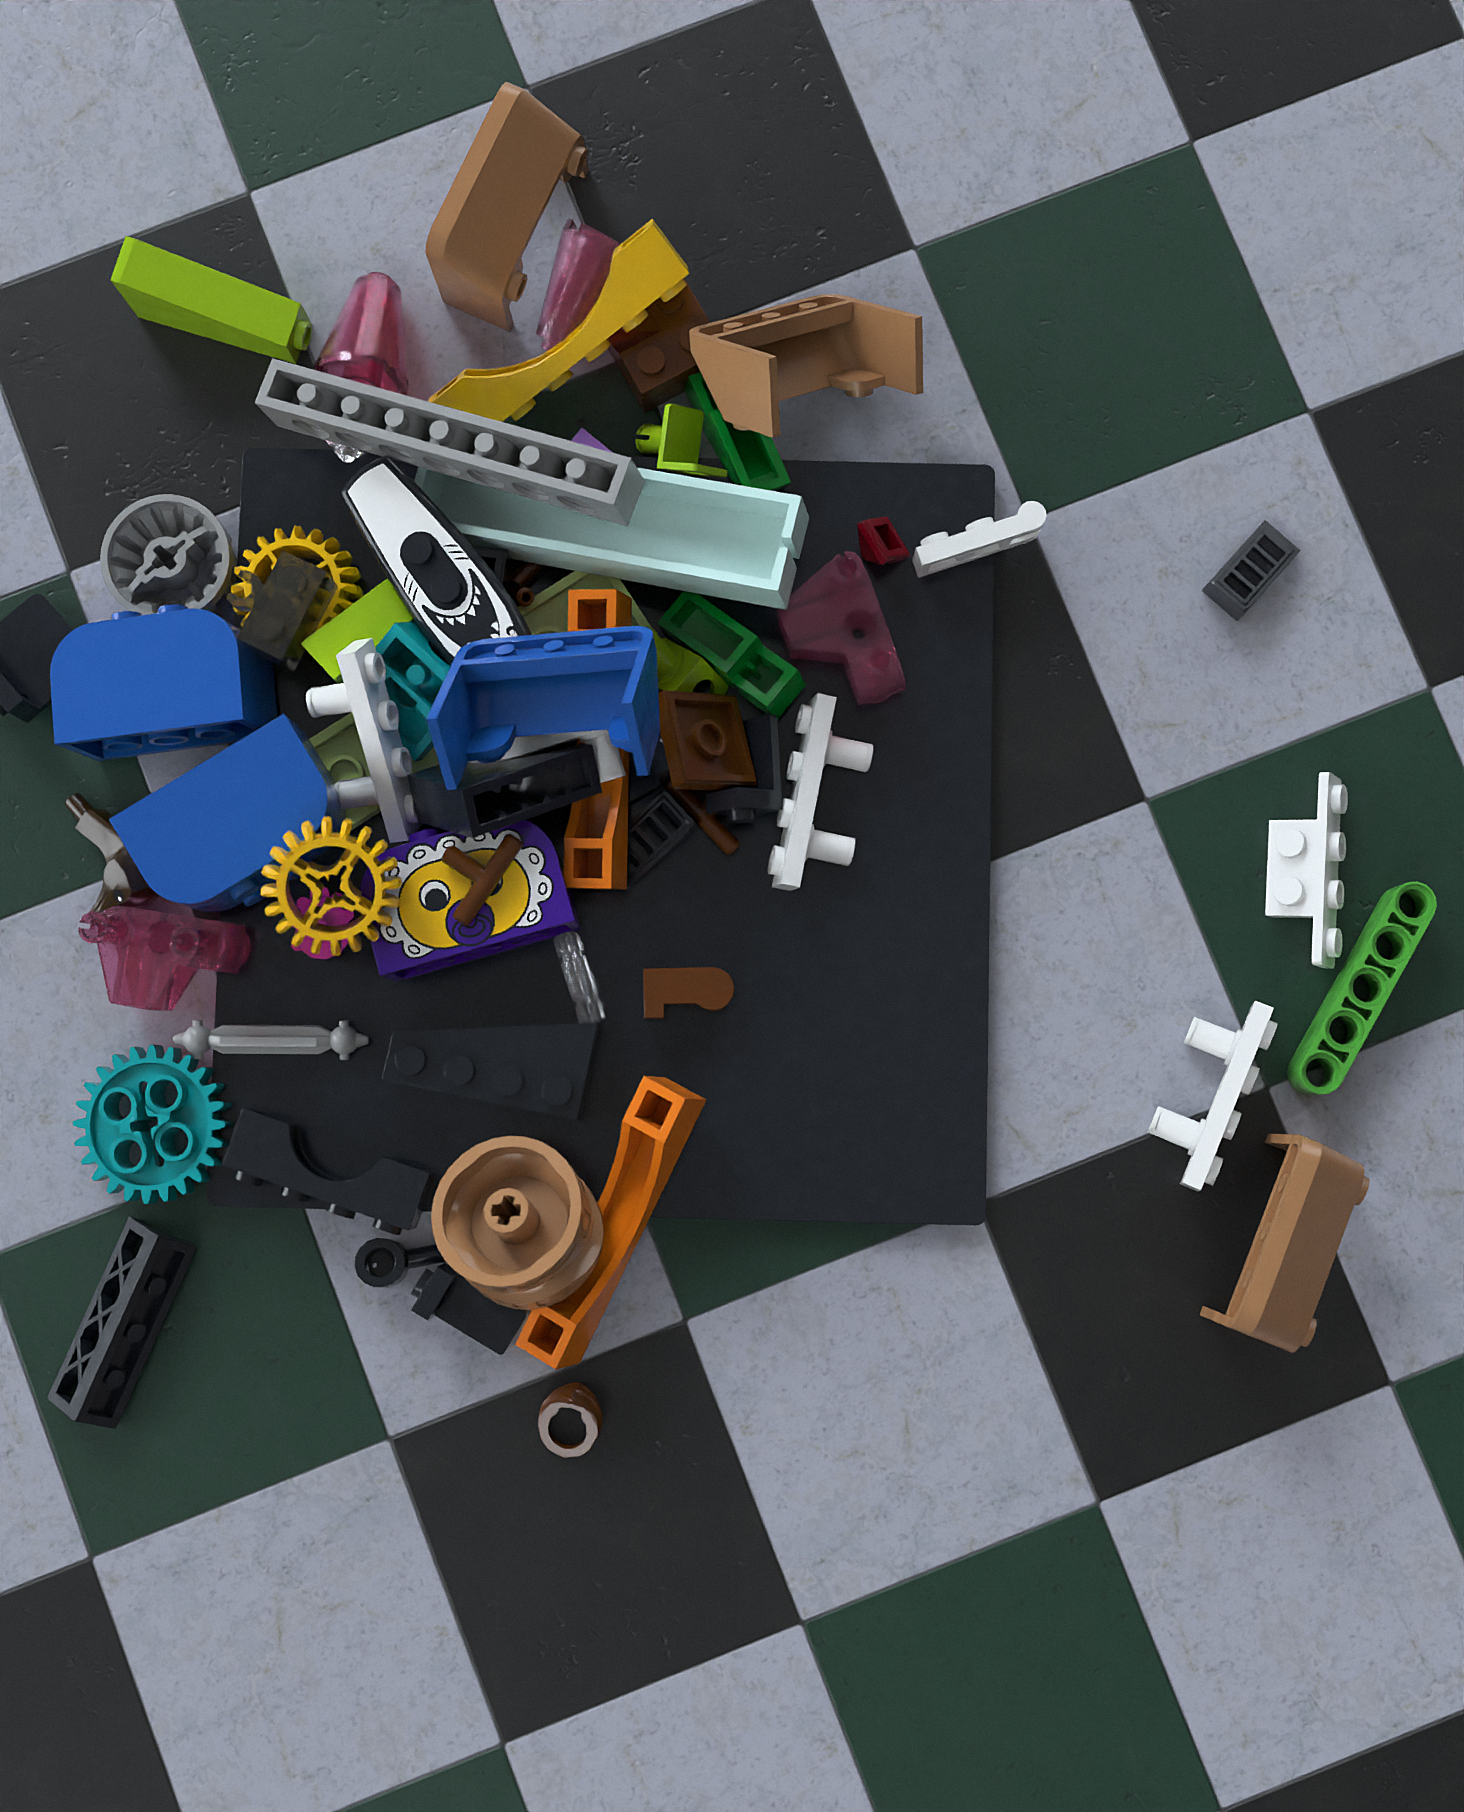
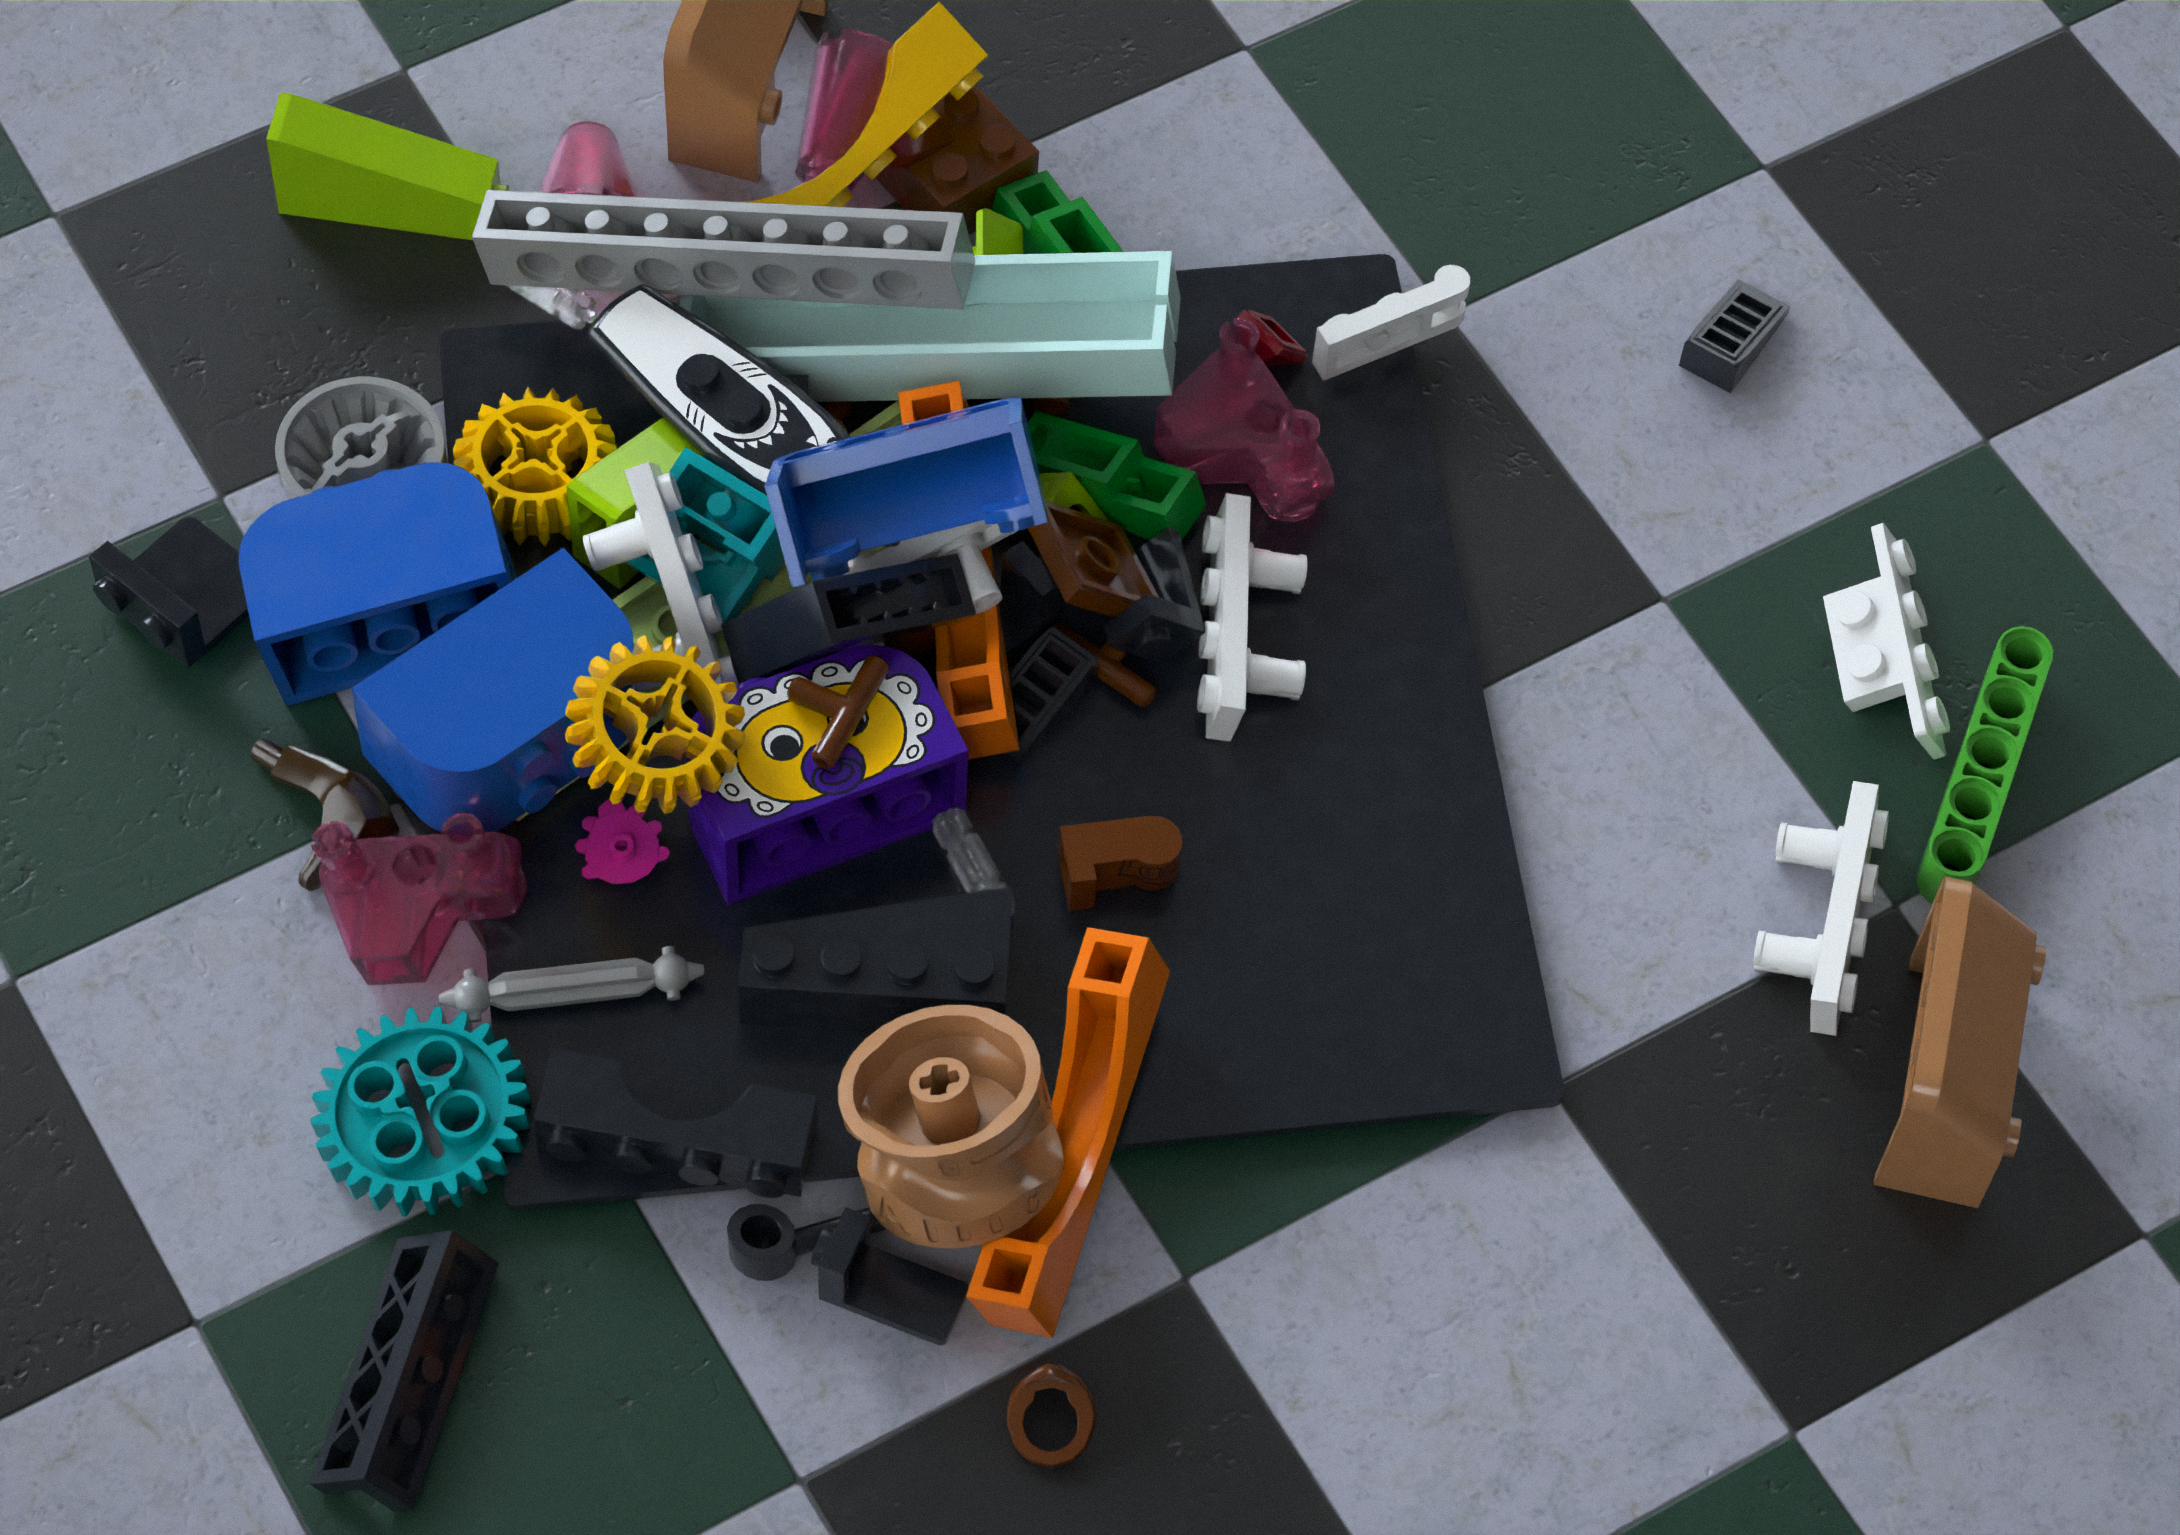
camera: 15 degrees left, 25 degrees down
(283, 609) = (534, 461): clear smoke brick -> none
(803, 349) = (1149, 146): medium nougat windscreen -> none

